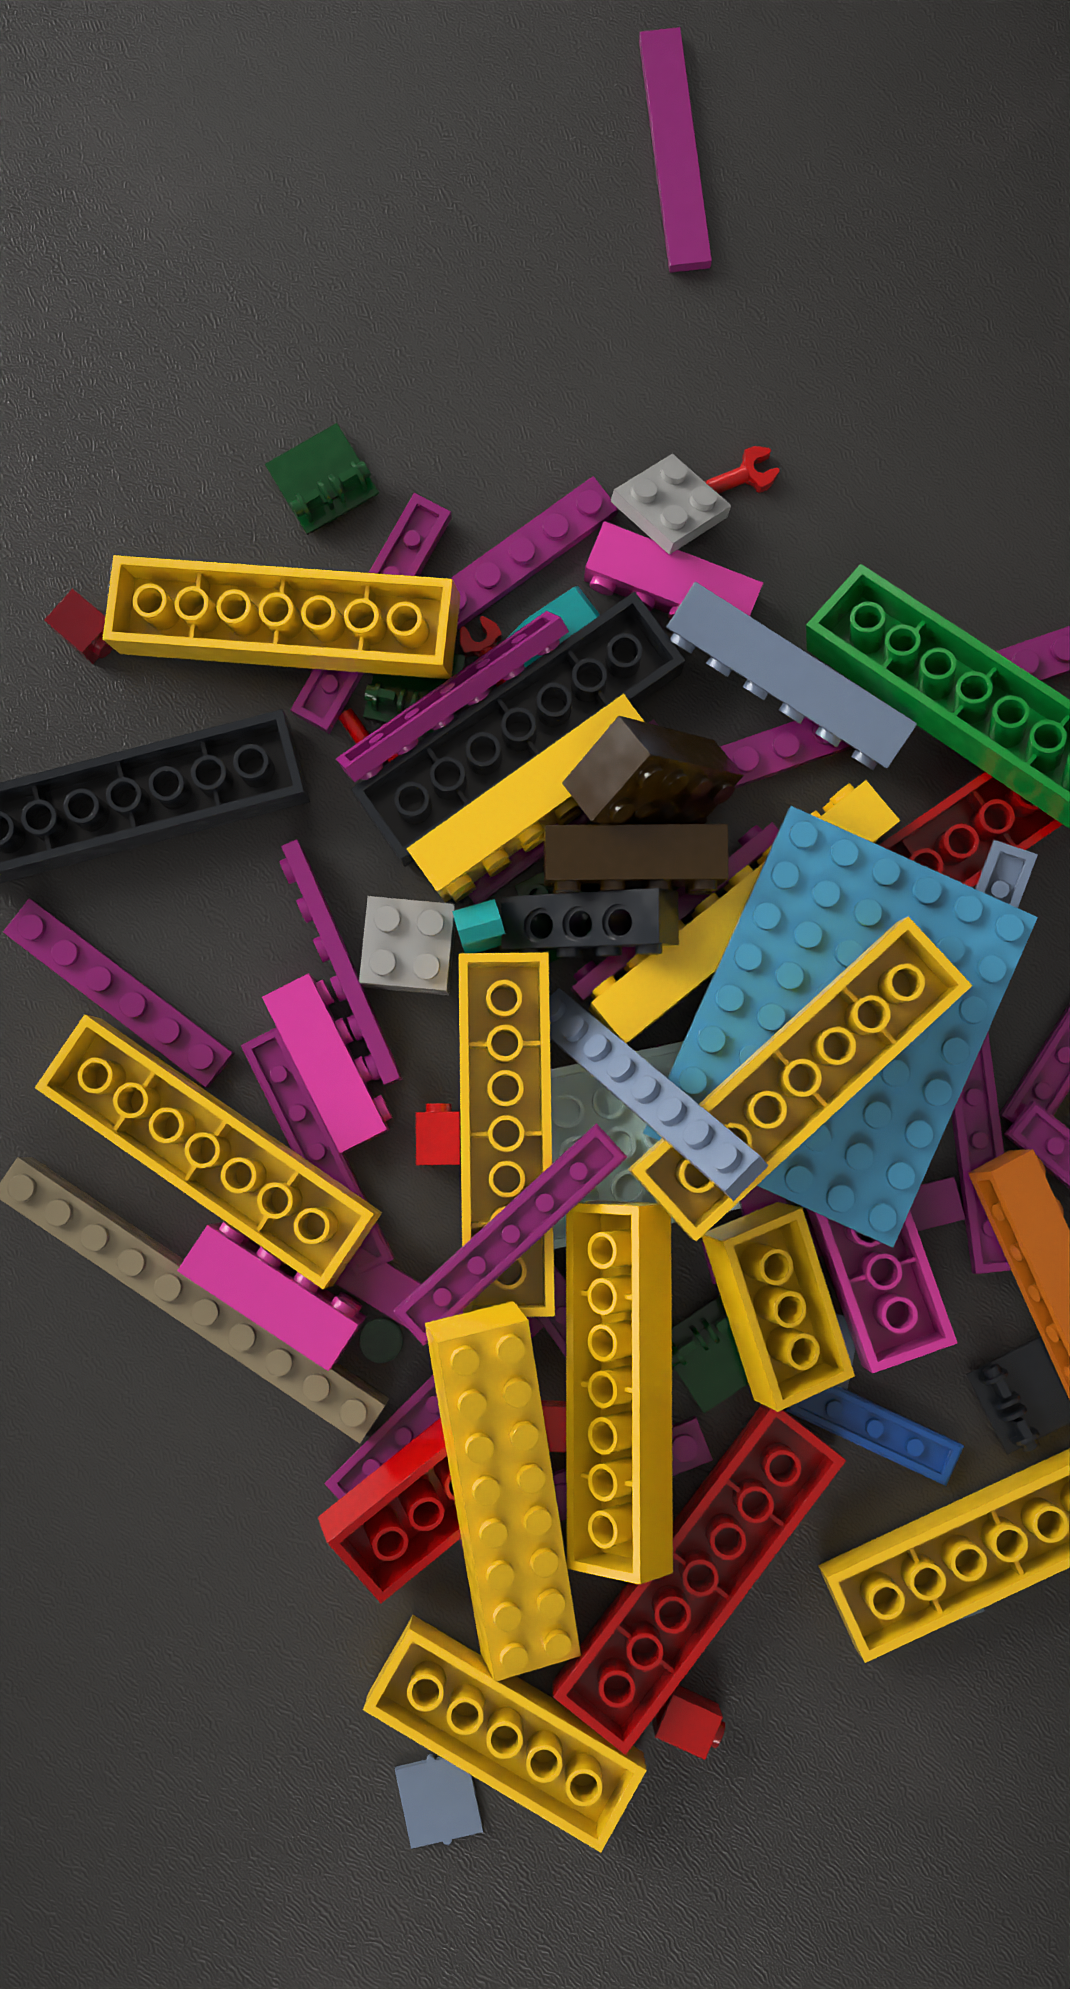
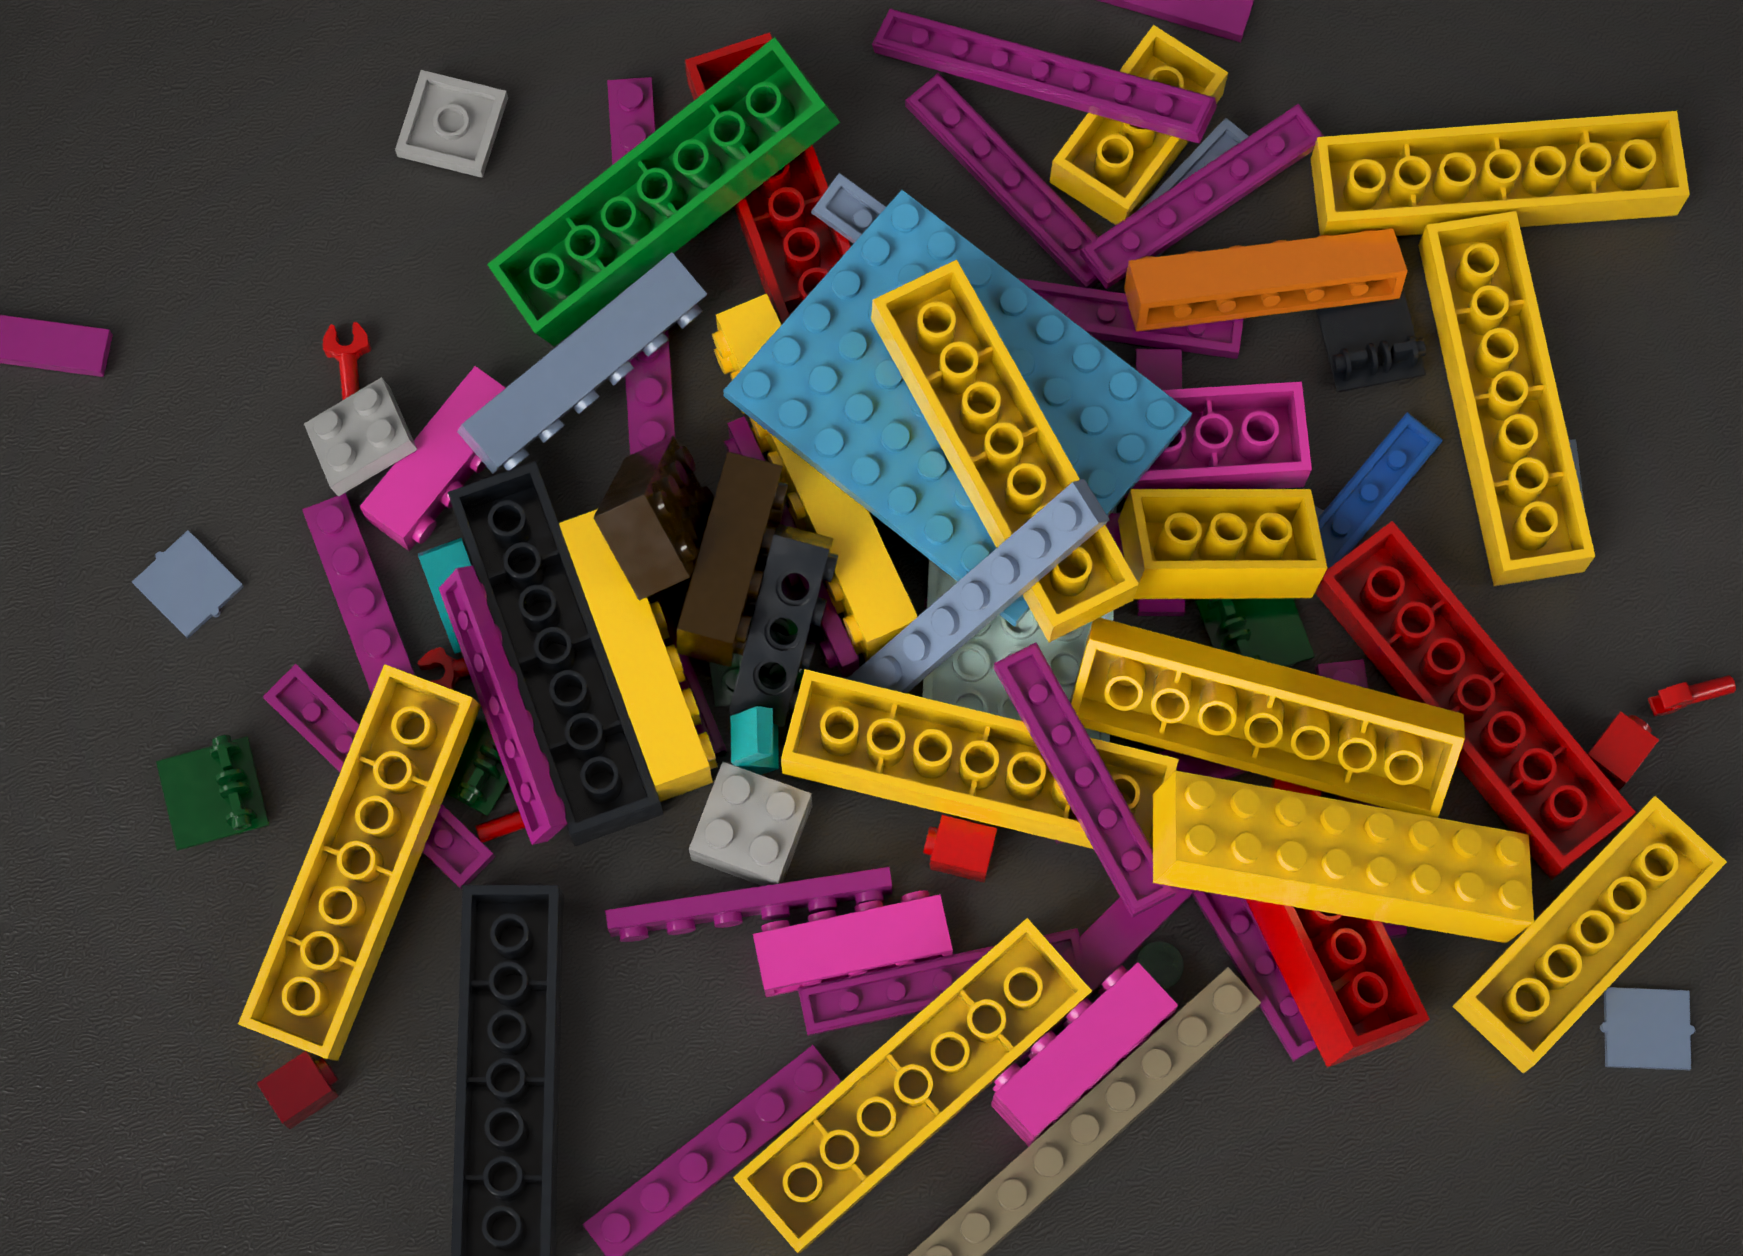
camera: 75 degrees left, 10 degrees down
(502, 401) = (187, 584): none -> sand blue piece
(759, 1774) = (1680, 695): none -> red bar
(992, 497) = (451, 123): none -> light grey plate

